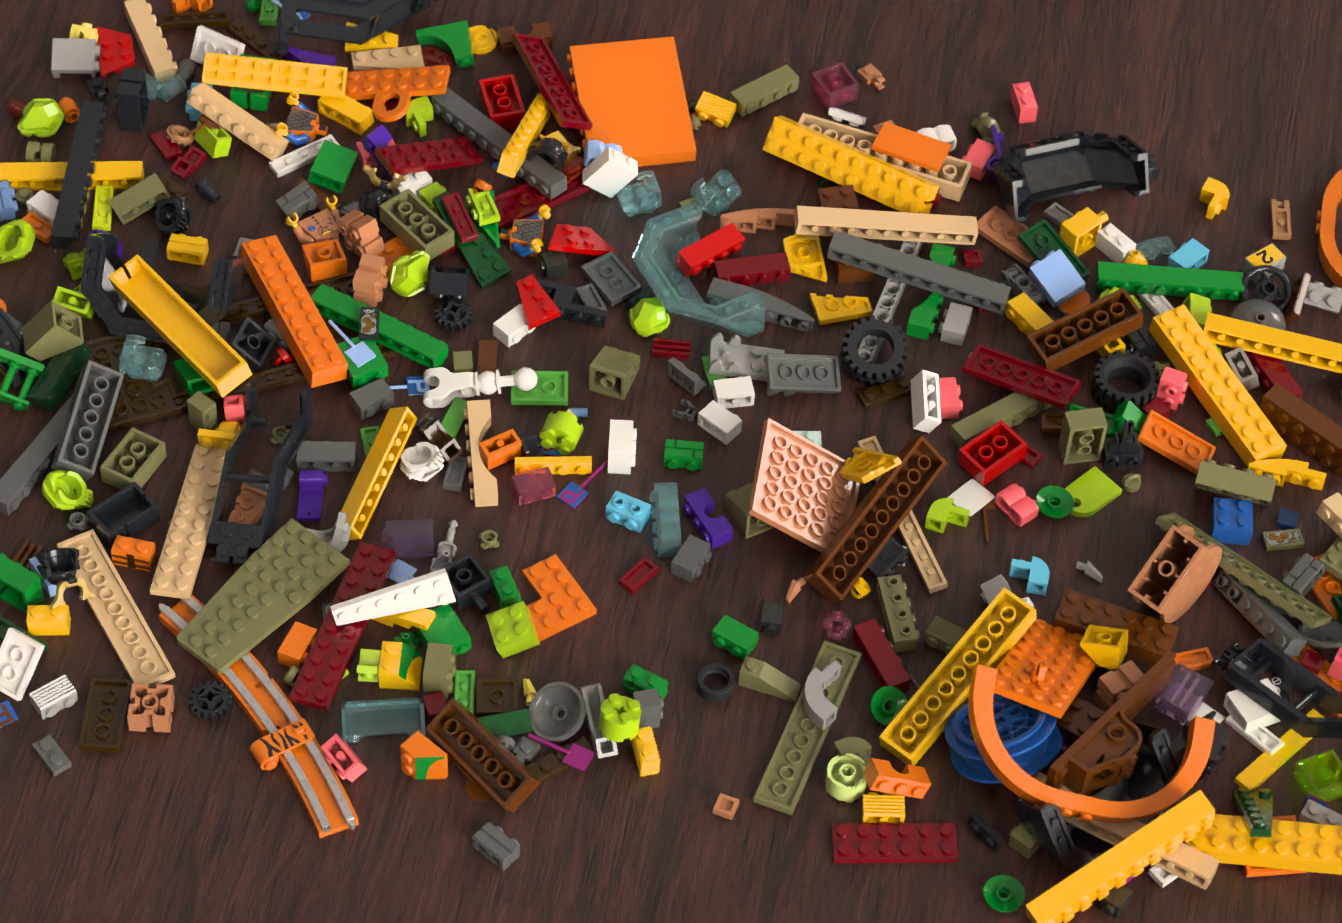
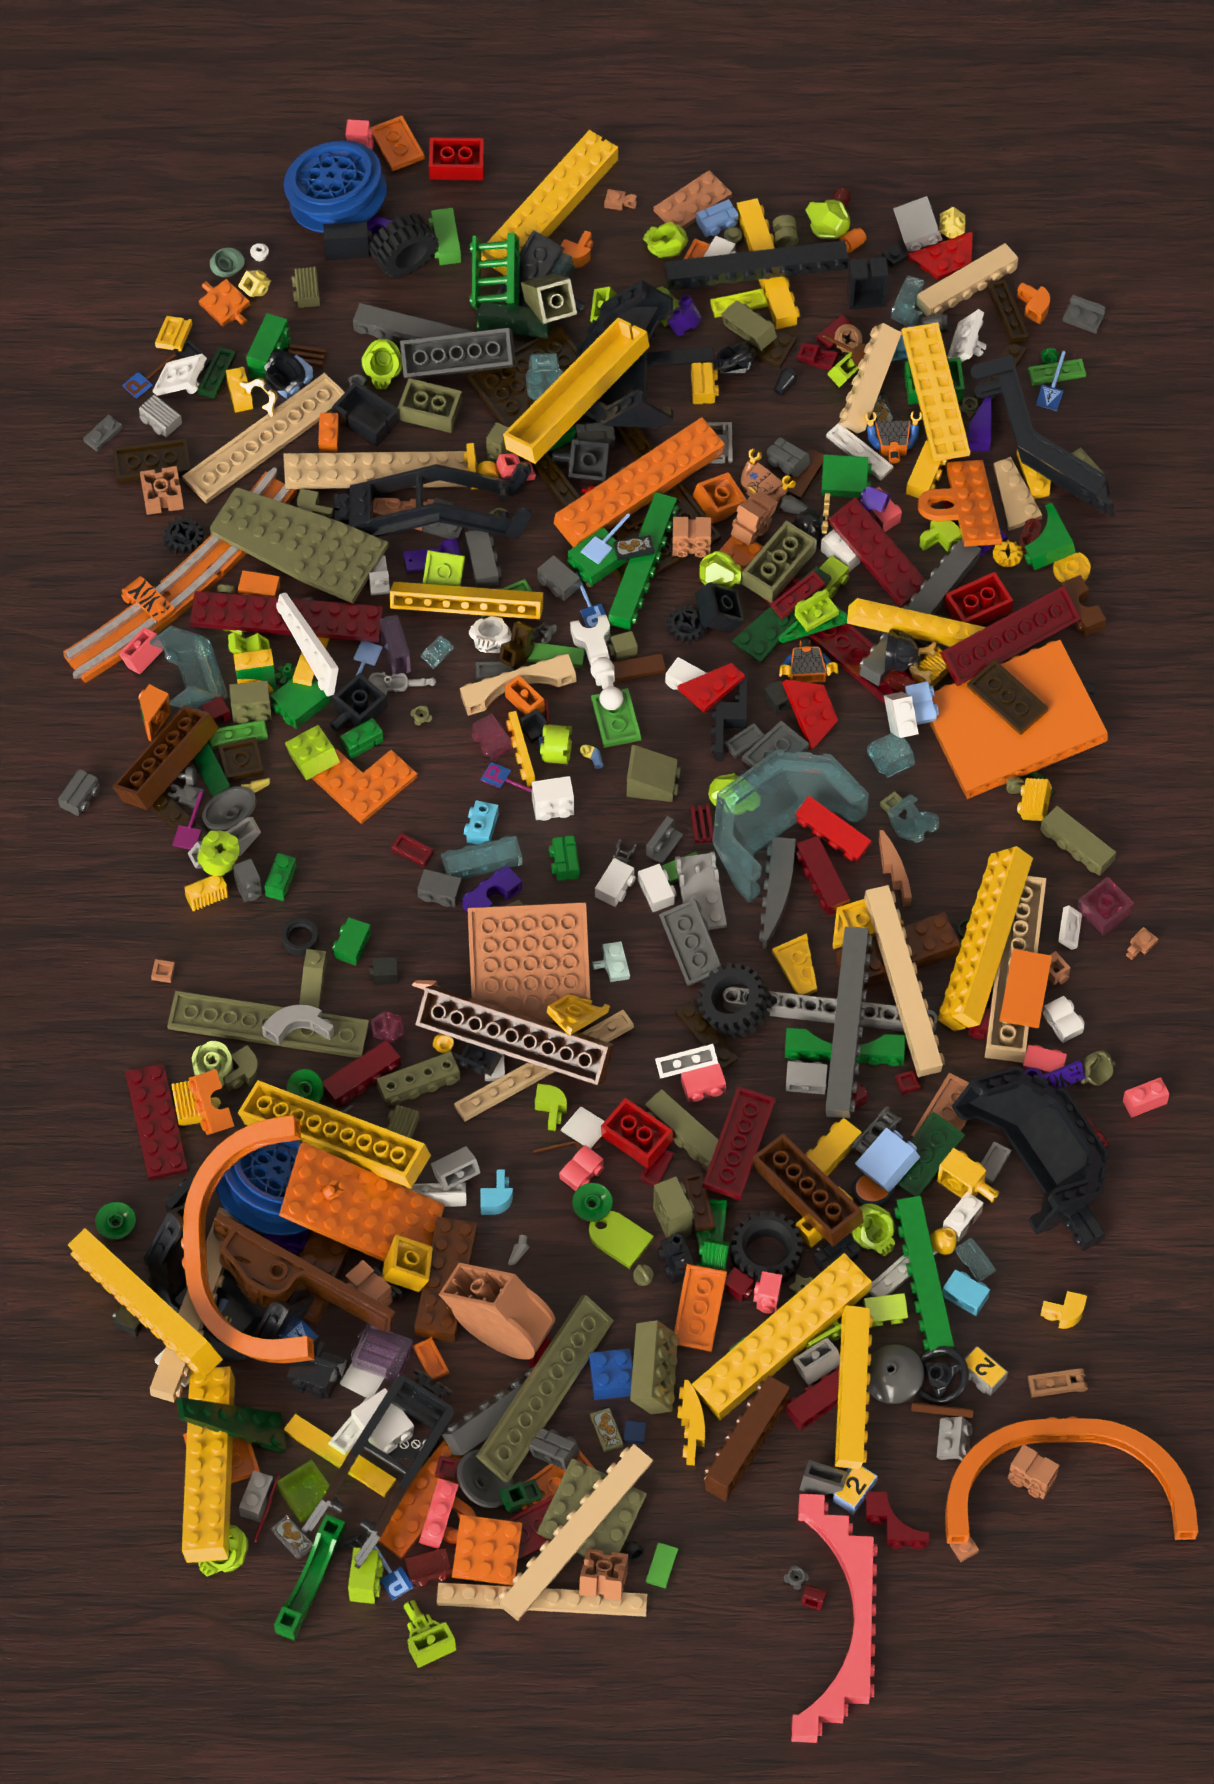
camera: 80 degrees right, 10 degrees up
(210, 583) = (310, 501): none -> olive brick
(332, 487) = (443, 568): none -> lime tile
(423, 508) = (437, 651): none -> clear light blue brick
(458, 79) = (1015, 554): none -> yellow gear
(616, 94) = (1007, 697): none -> dark brown plate

